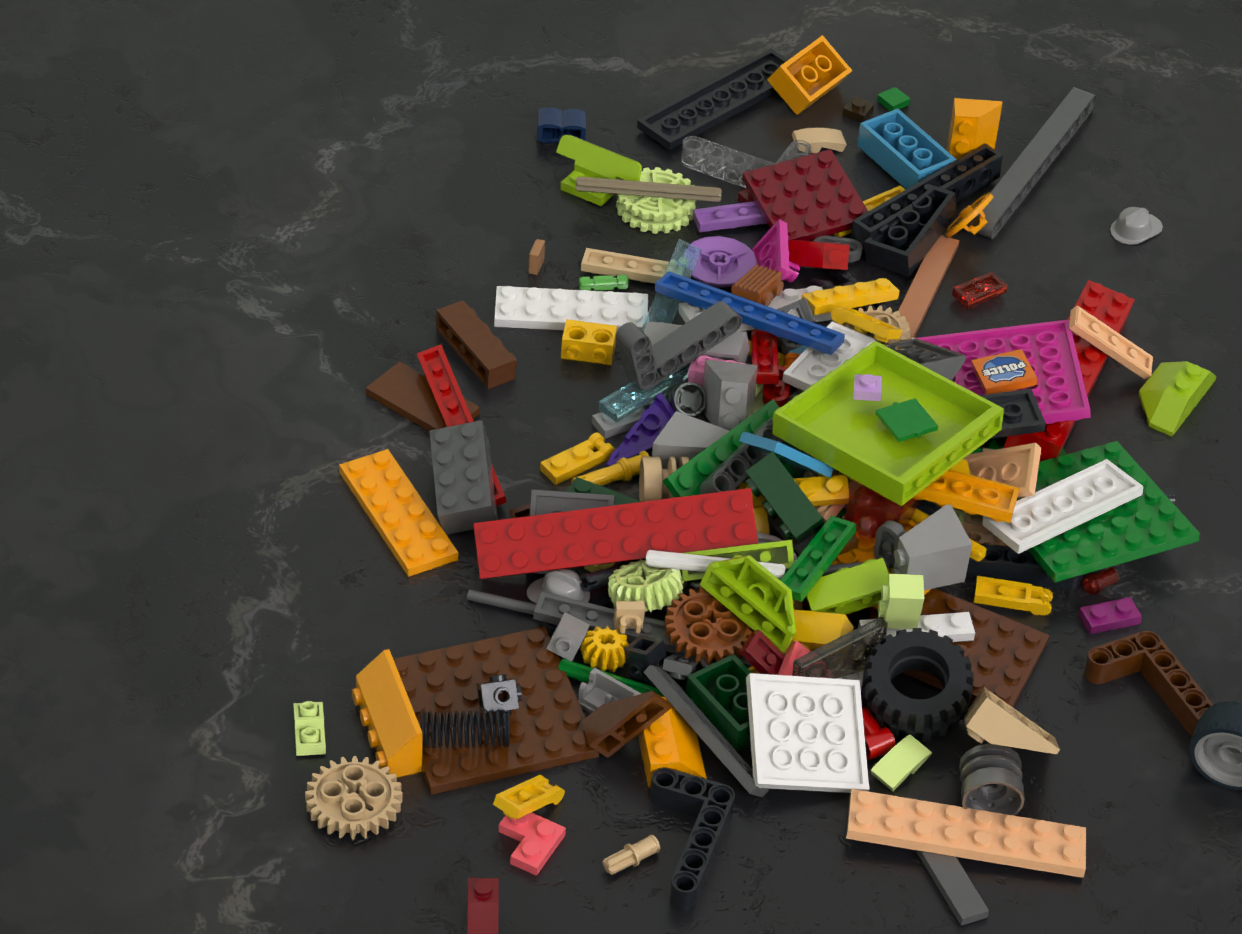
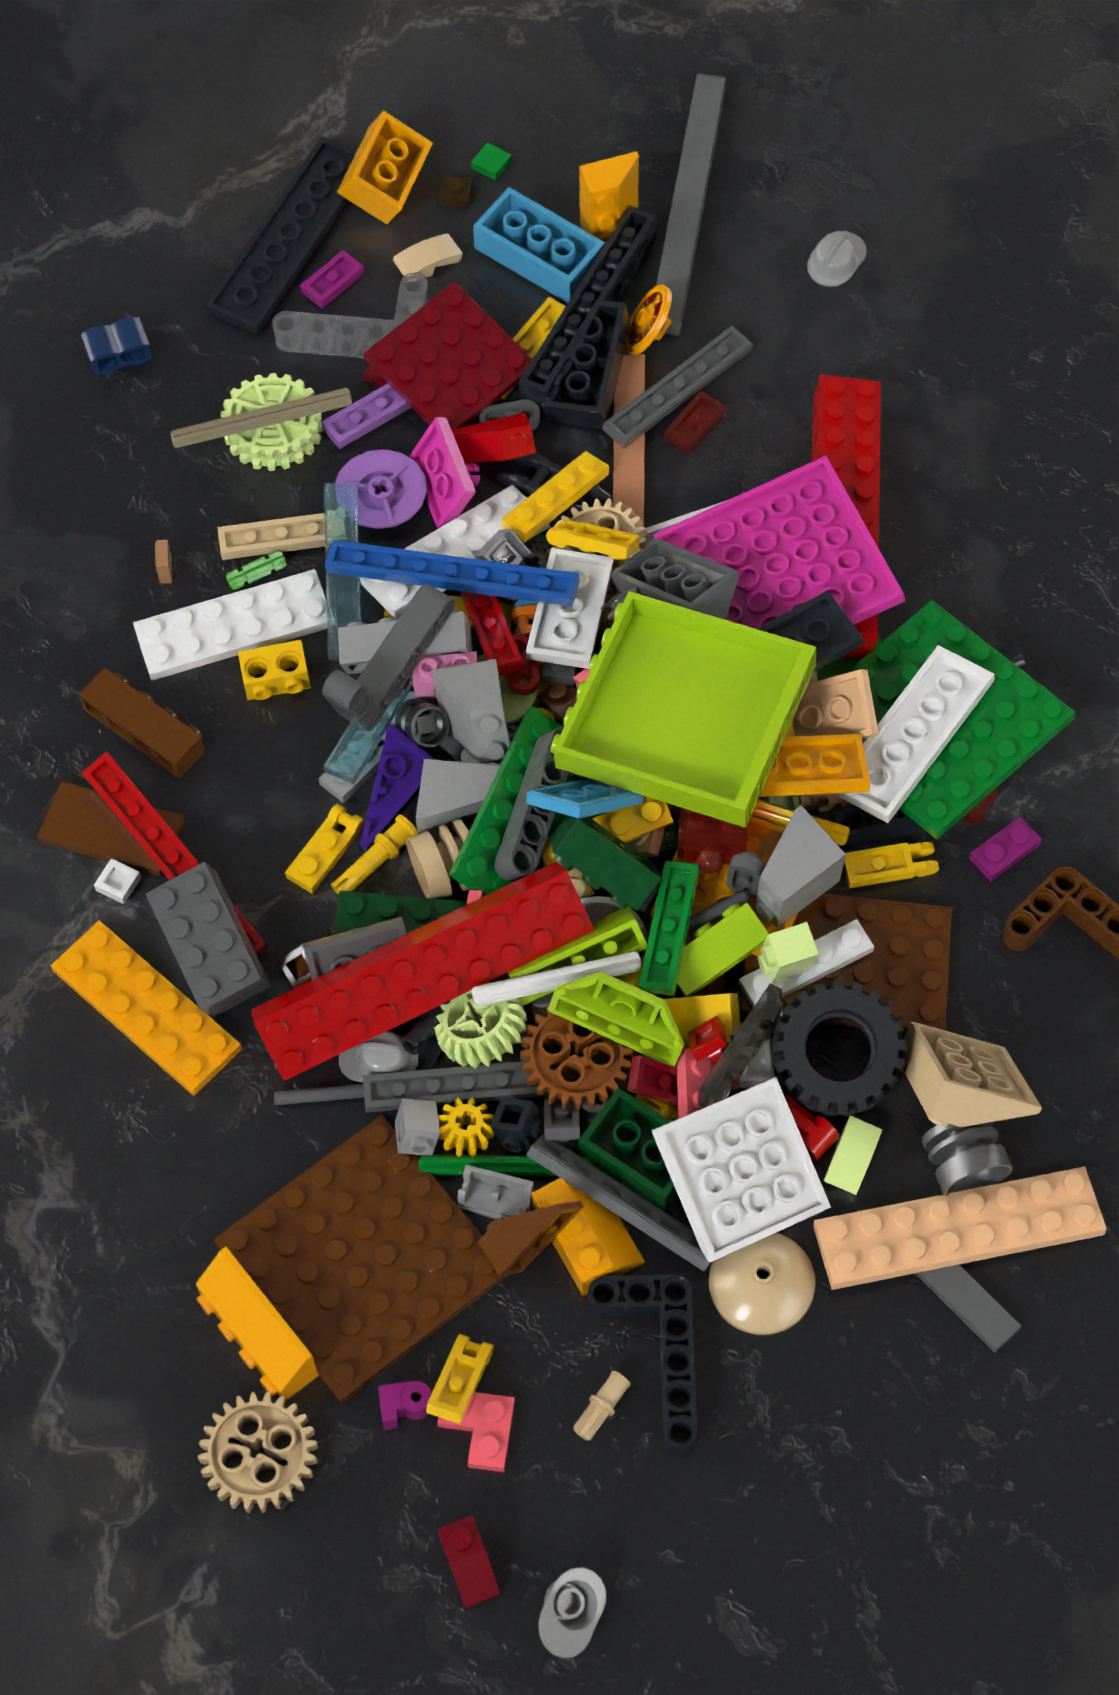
camera: 15 degrees left, 20 degrees up
(309, 728) = (167, 1369): yellowish green slope -> none
(412, 430) = (117, 881): none -> white plate
(477, 802) = (403, 1400): none -> magenta leg
(489, 691) = (373, 1253): brick -> none
(504, 721) = (304, 1326): black piece -> none
(595, 163) = (183, 401): lime plate -> none
(629, 615) = (479, 1077): tan tile -> none
(740, 132) = (332, 279): none -> magenta plate
(759, 285) = (447, 526): dark orange brick -> none
(793, 823) = (757, 1303): none -> tan dish
(815, 638) = (708, 1040): none -> red tile
(867, 387) = (648, 671): lavender plate -> none
(906, 420) = (709, 701): green piece -> none
(975, 265) = (677, 387): none -> dark grey tile
(1004, 372) = (782, 565): tile -> none
(1111, 342) = (879, 463): light nougat tile -> none
(1173, 394) = (964, 498): lime wedge -> none

